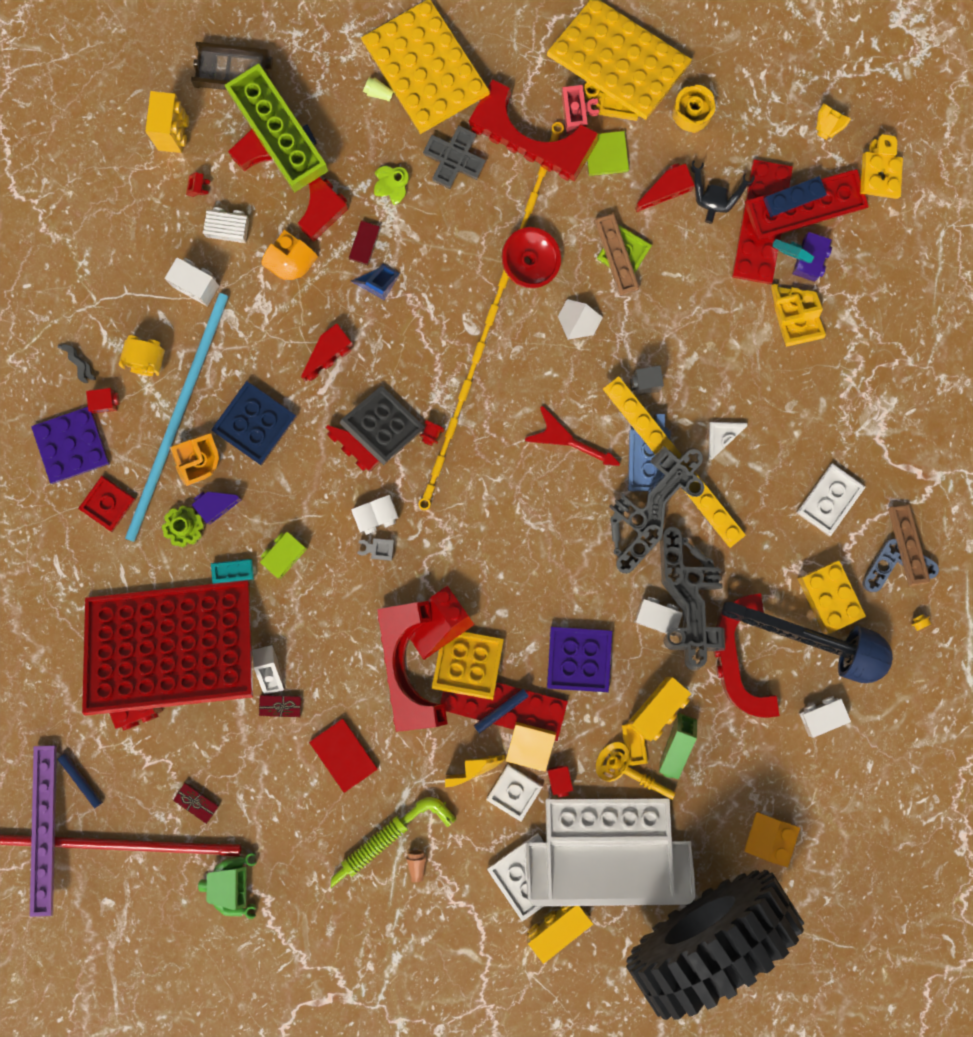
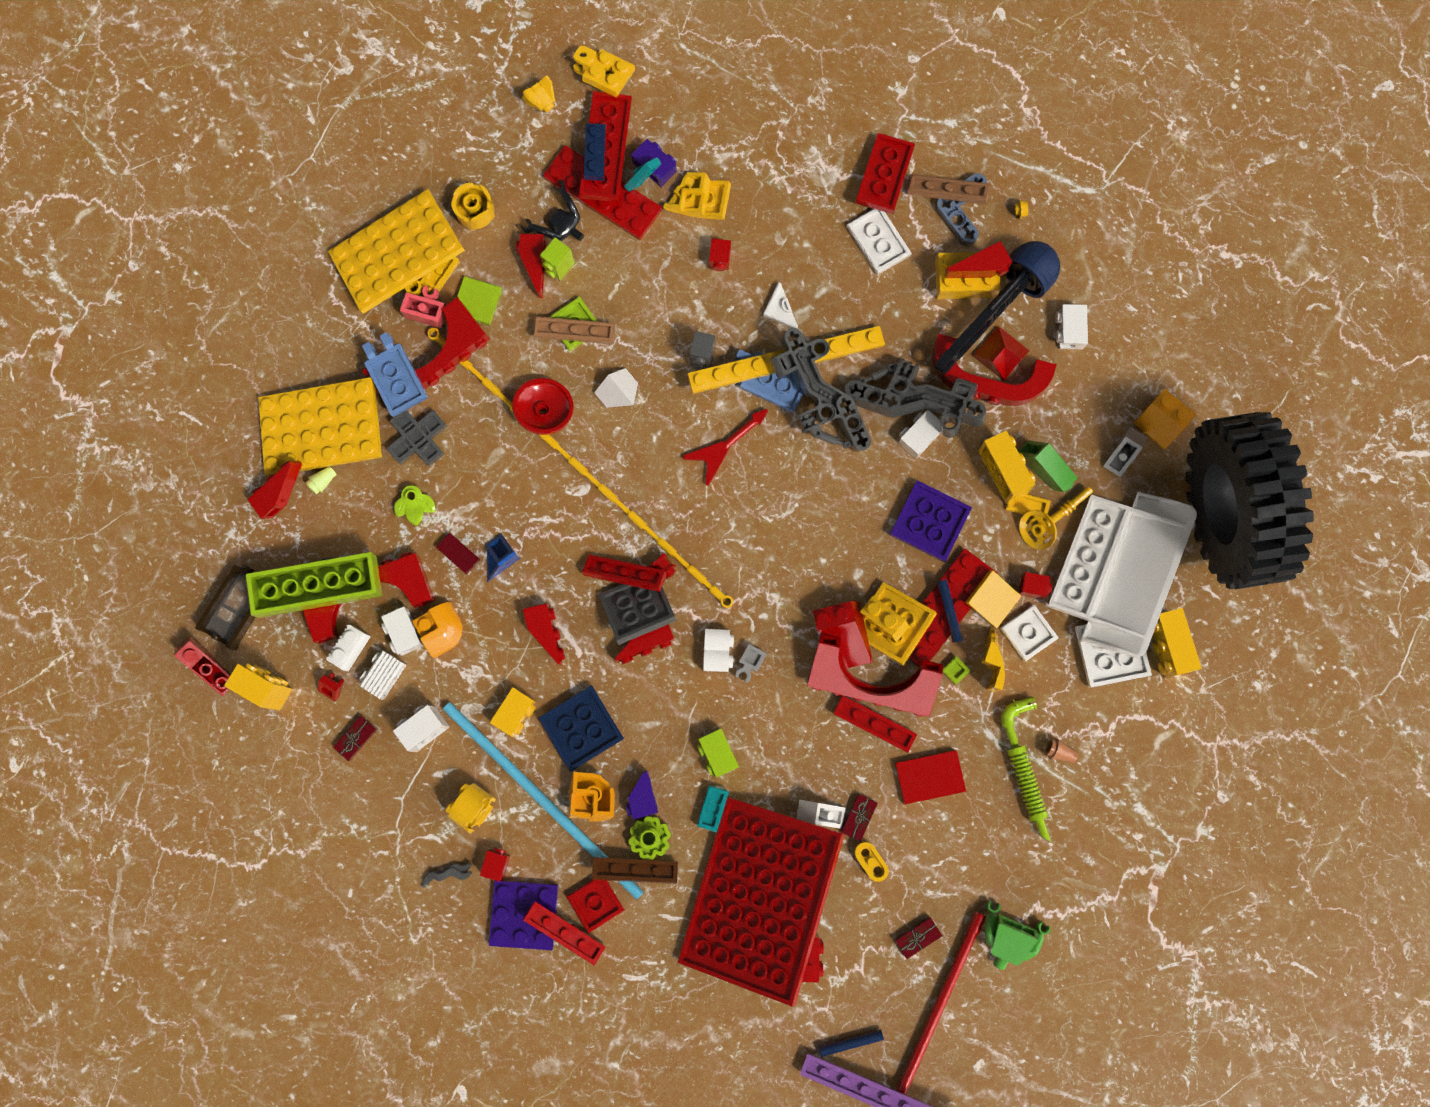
camera: 60 degrees left, 5 degrees down
(68, 487) = (564, 933): none -> red plate
(148, 525) = (634, 870): none -> reddish brown plate
(161, 227) = (355, 738): none -> dark red tile
(169, 63) = (202, 664): none -> red slope
(237, 184) = (348, 648): none -> white brick
(242, 356) = (513, 712): none -> yellow brick
(245, 732) = (871, 861): none -> yellow plate
(272, 224) = (401, 631): none -> white brick
(348, 55) = (275, 493): none -> red slope
(369, 685) = (875, 724): none -> red plate
(409, 400) = (624, 573): none -> red plate
(450, 739) = (955, 670): none -> lime tile
(466, 653) = (884, 619): none -> yellow brick
(499, 110) = (394, 376): none -> medium blue tile
(675, 208) = (557, 259): none -> lime brick
(724, 814) = (1125, 451): none -> light grey slope
(749, 357) = (720, 254): none -> red brick
(770, 660) = (1001, 353): none -> red slope
(844, 607) = (983, 264): none -> red slope
(898, 478) = (885, 173): none -> red plate

